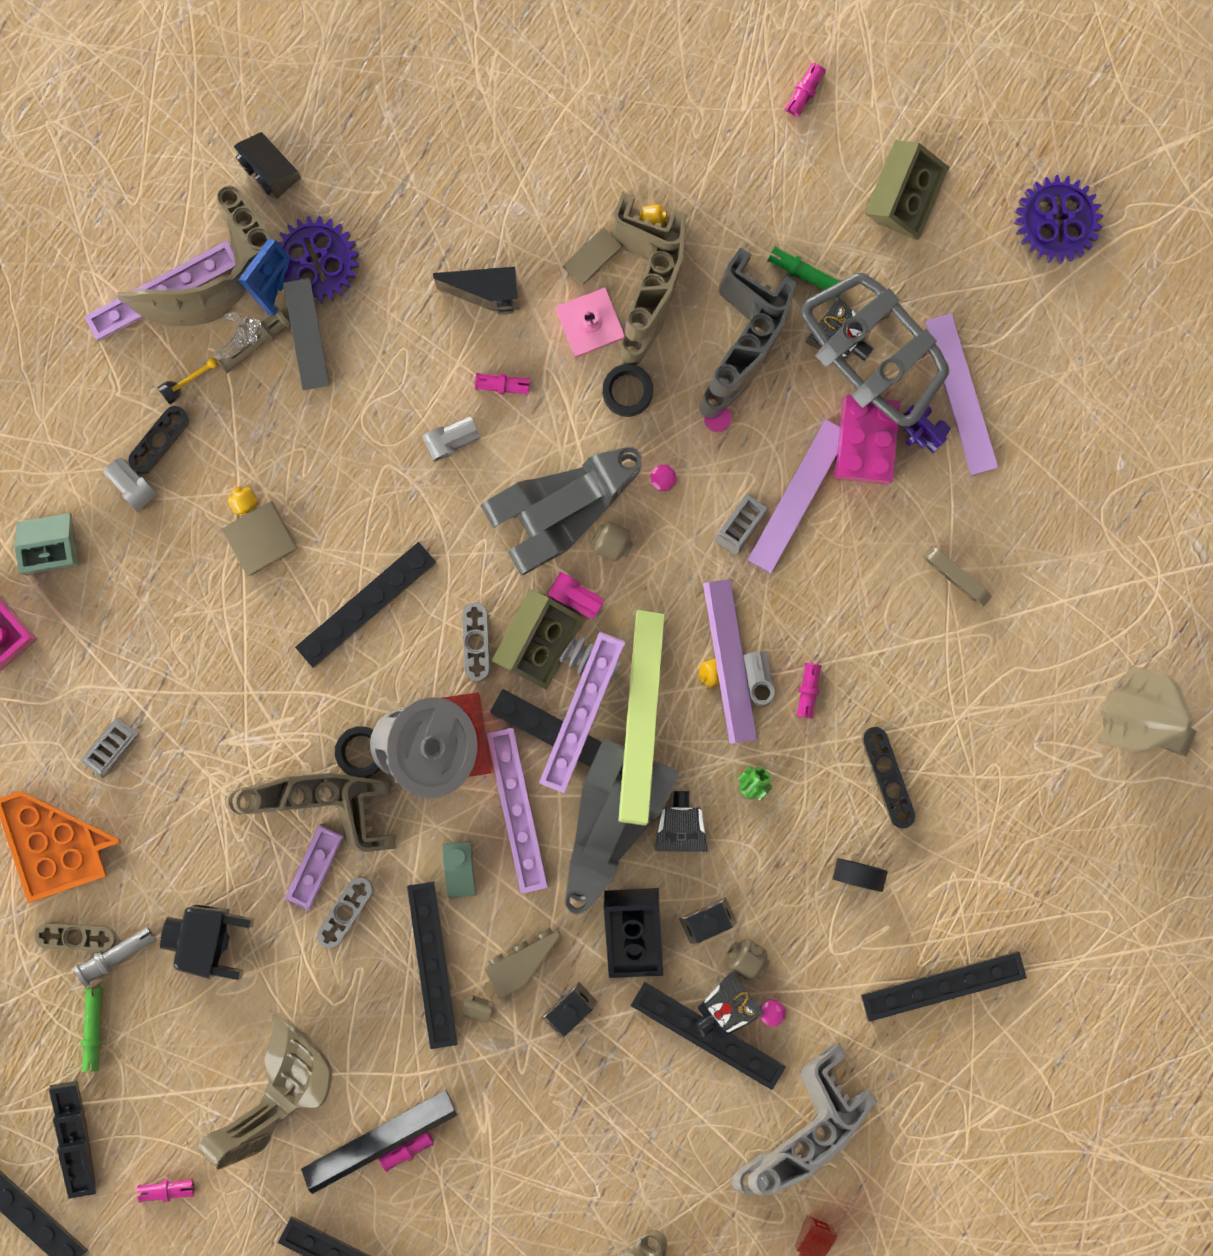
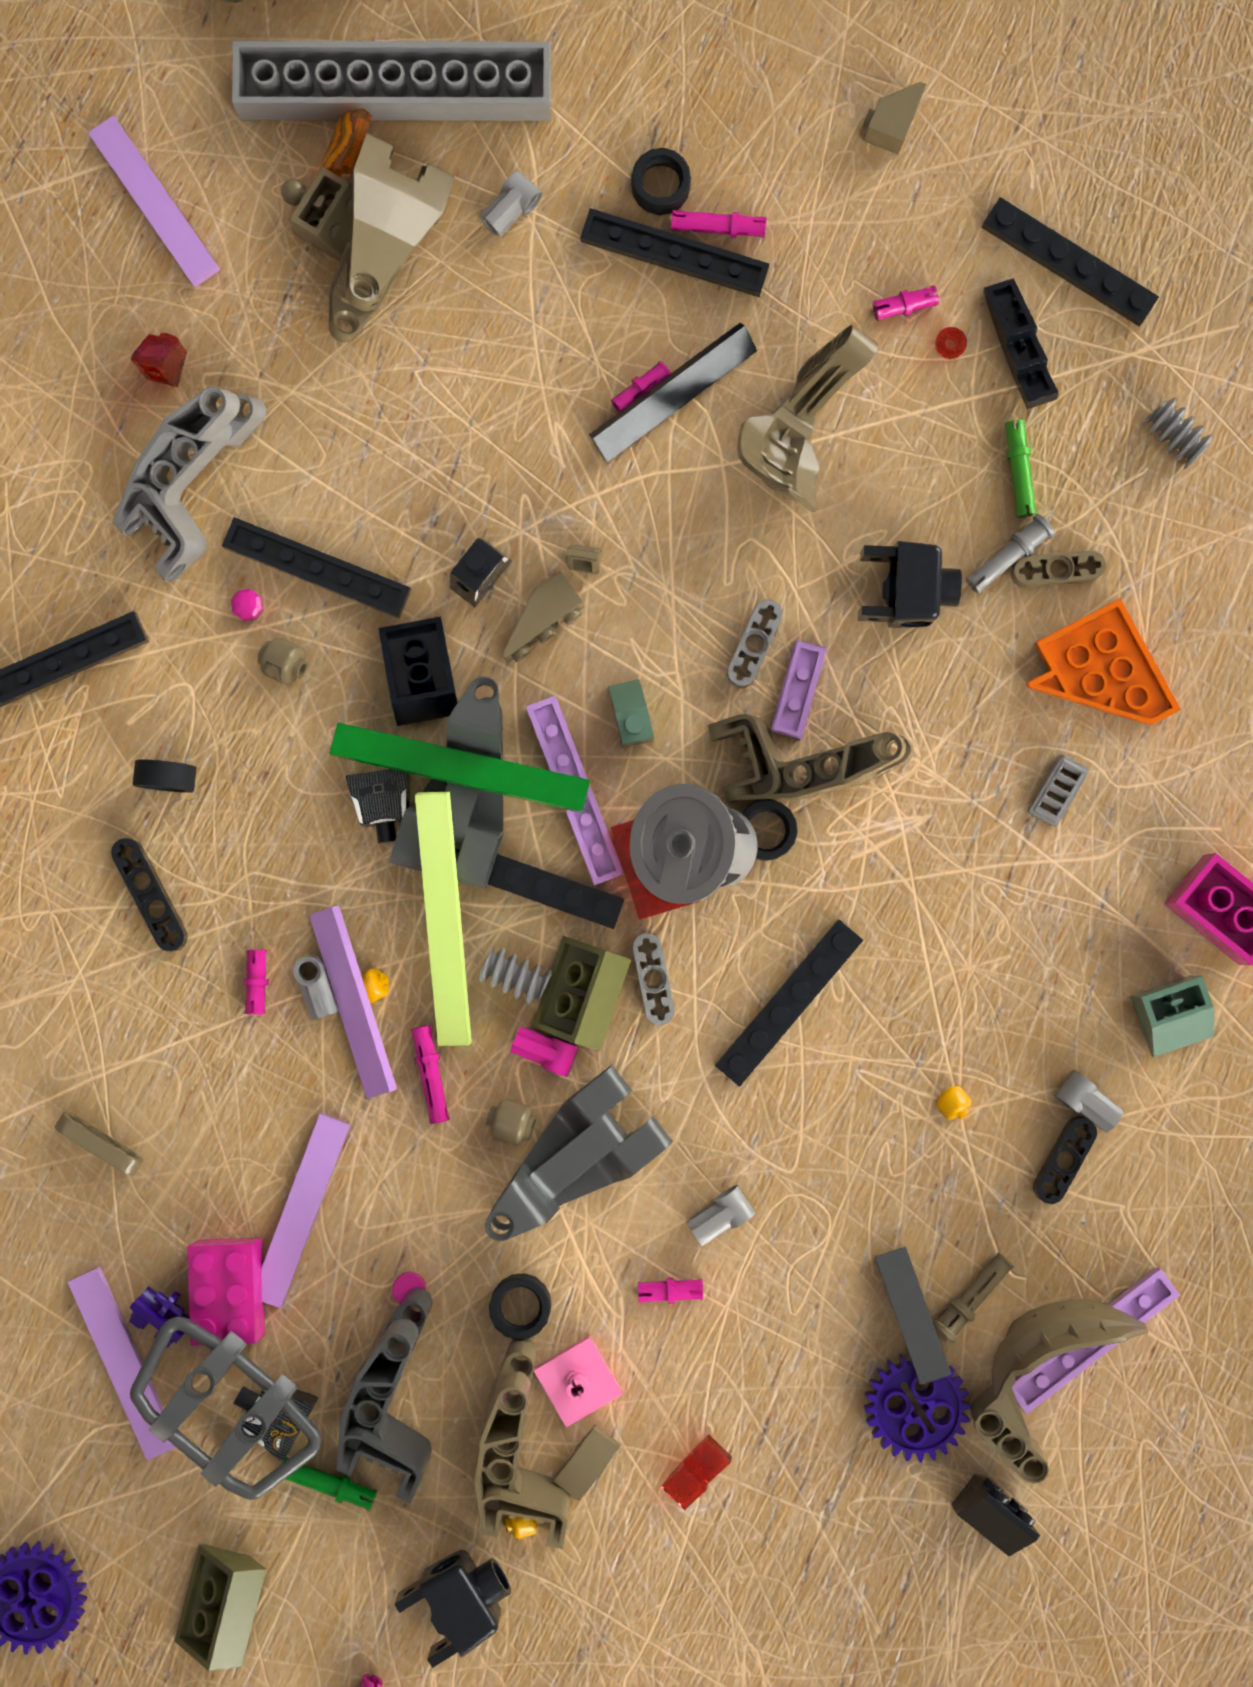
camera: 170 degrees right, 0 degrees up
(124, 1149) = (955, 335): none -> clear red plate
(171, 390) = (1059, 1221): hinge -> none
(243, 337) = (987, 1300): clear helmet -> none
(259, 538) = (926, 1061): dark tan slope -> none
(266, 275) = (973, 1380): blue wing -> none
(432, 965) = (644, 599): black plate -> none
(489, 288) = (709, 1405): black slope -> none
(504, 235) = (696, 1471): none -> clear red slope
(582, 712) = (514, 915): lavender plate -> none
(609, 842) = (460, 767): none -> green tile
(663, 478) = (463, 1207): dark pink tile -> none
(674, 591) = (429, 1070): none -> dark pink pin
(708, 921) = (334, 695): black torso -> none
(709, 163) = (460, 1601): none -> black piece
(727, 1008) = (297, 600): torso -> none
(728, 542) = (372, 1147): light grey slope -> none
(754, 783) = (302, 864): bright green gear -> none

